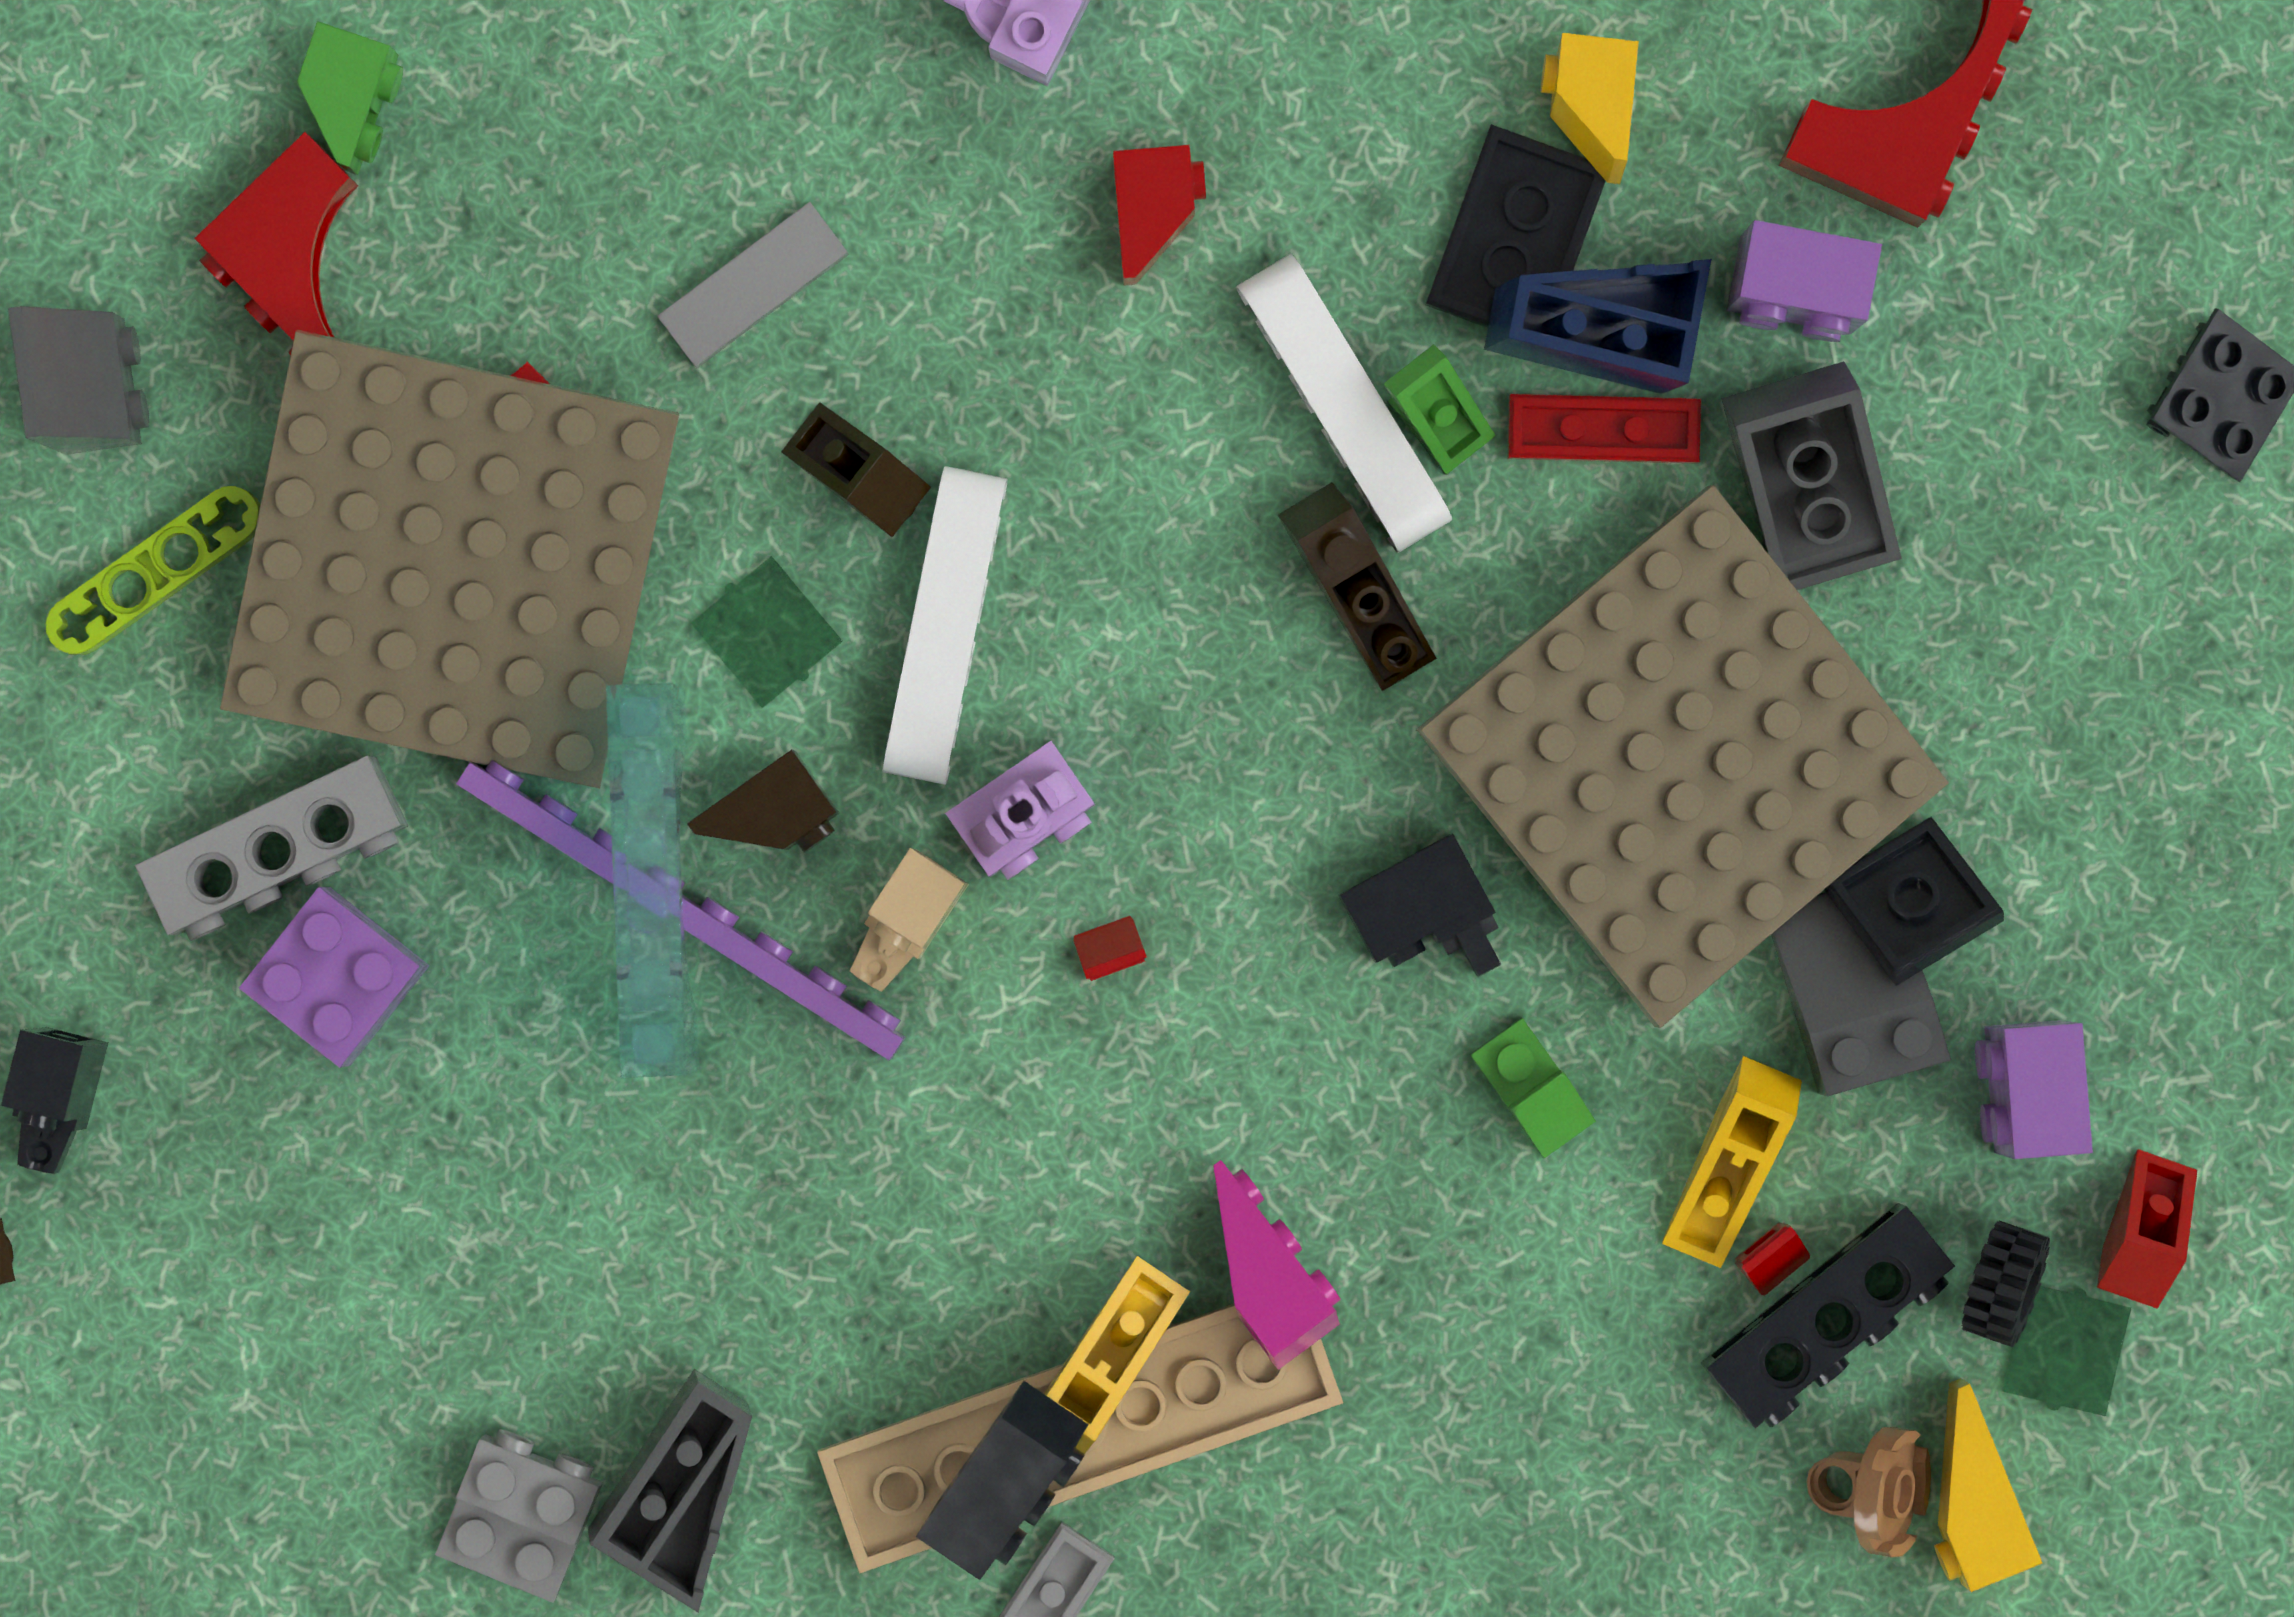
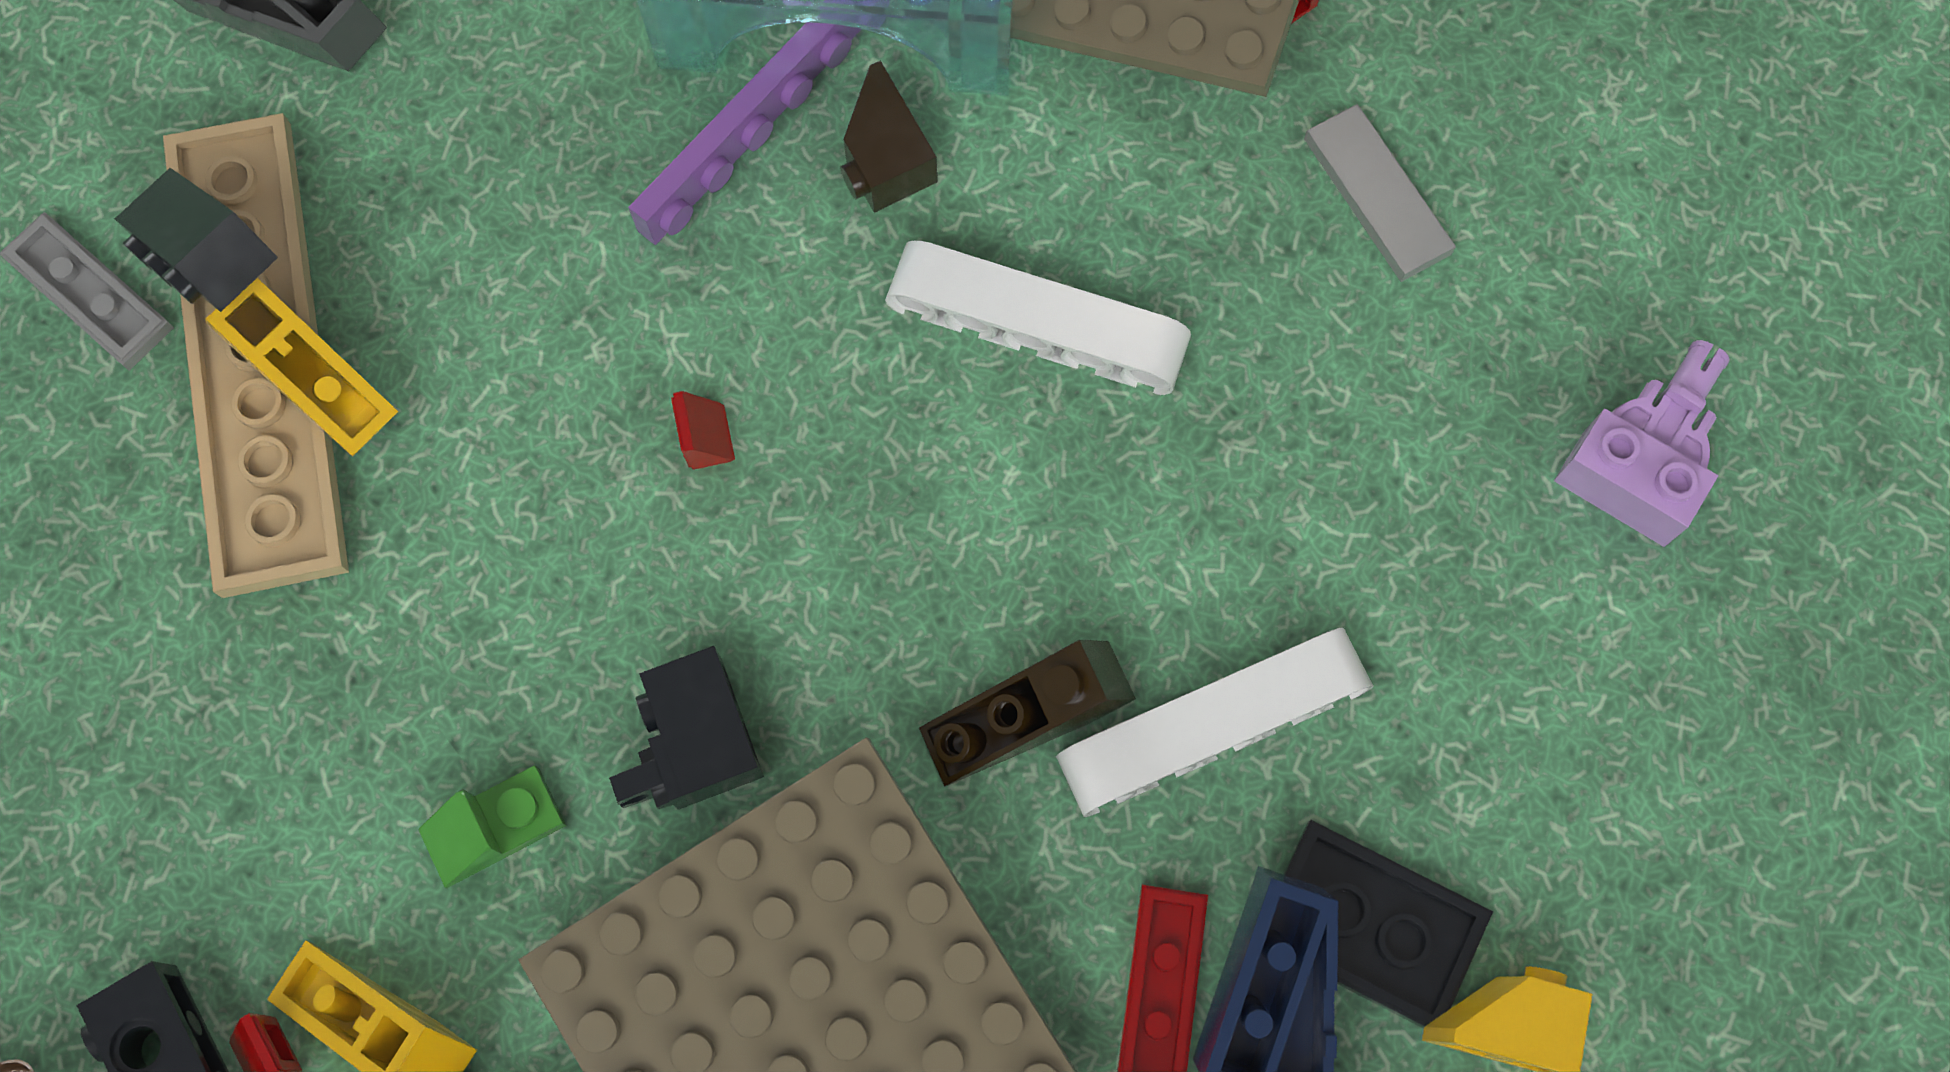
camera: 95 degrees right, 15 degrees down
(767, 632) = (1051, 169): clear green piece -> none
(856, 469) = (1192, 256): dark brown slope -> none
(906, 918) = (768, 244): tan hinge -> none
(1021, 811) = (848, 361): lavender brick -> none
(1154, 202) = (1432, 557): red slope -> none
(1269, 1286) = (340, 524): dark pink slope -> none
(1438, 409) = (1200, 813): bright green slope -> none

